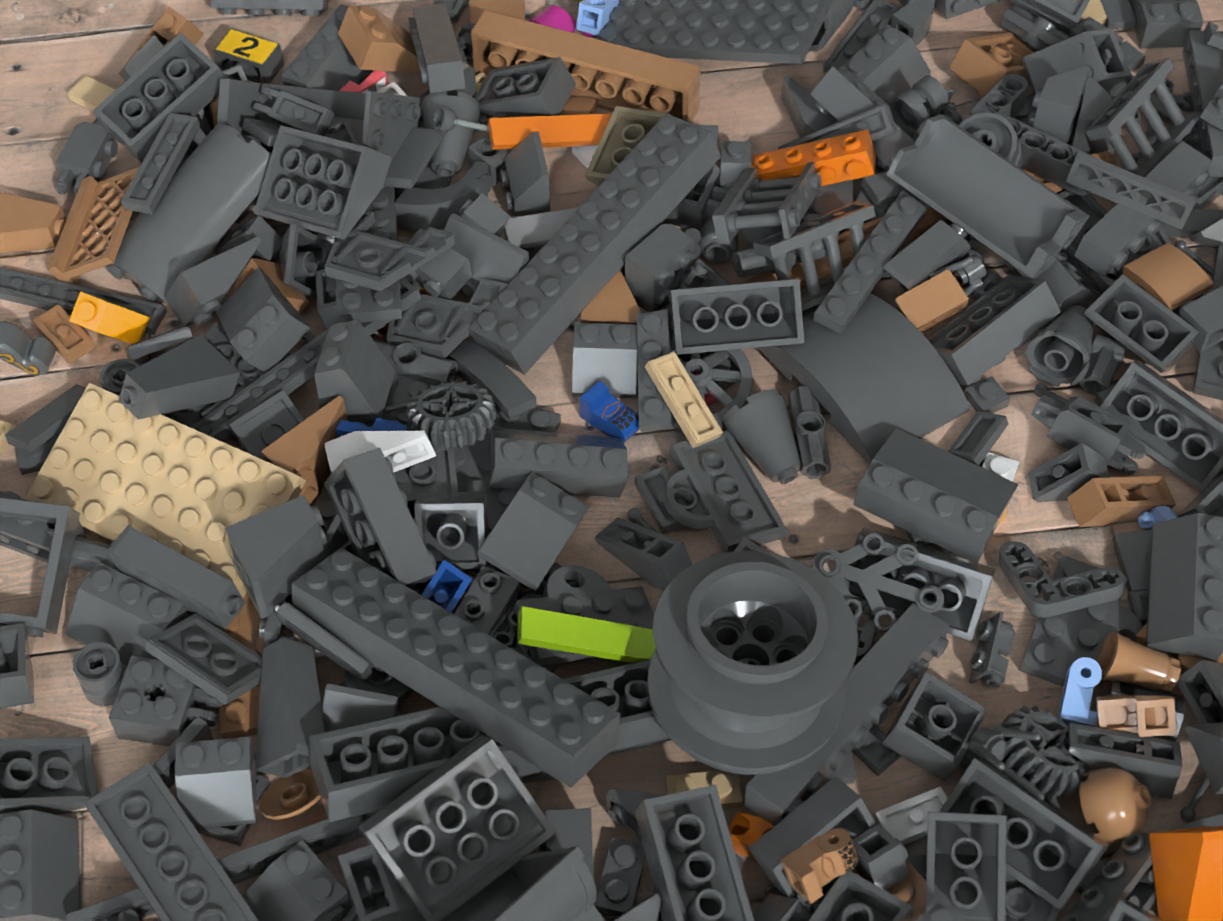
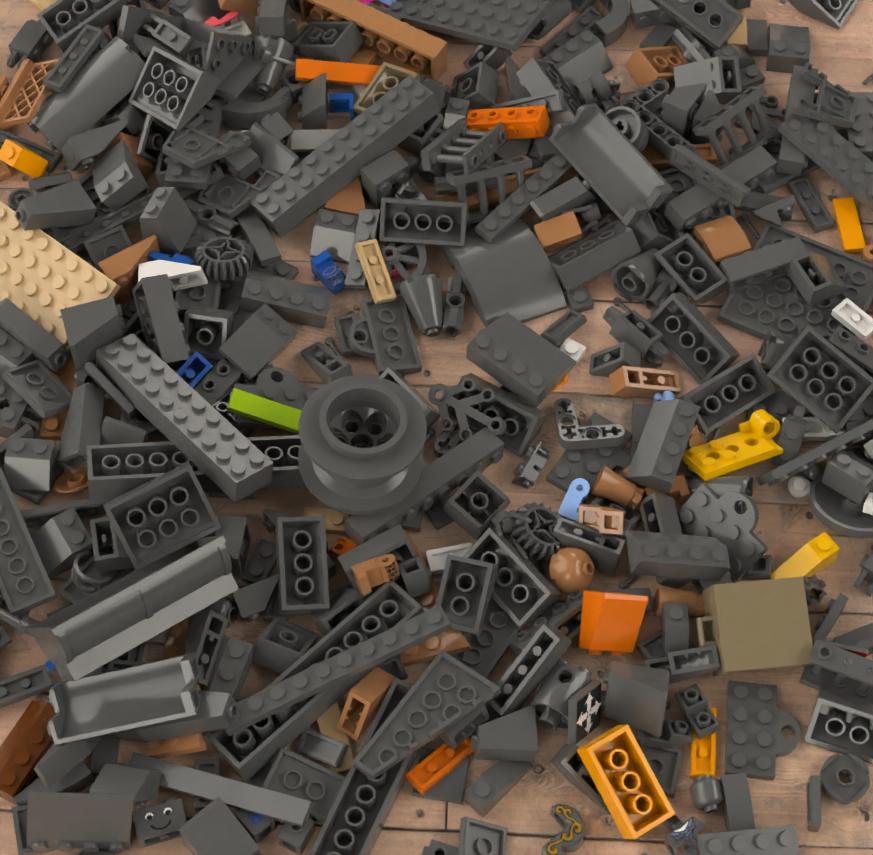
camera: 10 degrees right, 5 degrees up
(567, 173) = (342, 103): none -> blue bracket
(752, 119) = (477, 85): none -> dark grey slope
(753, 85) = (491, 55): none -> dark grey slope
(983, 22) = (659, 36): none -> dark grey tile

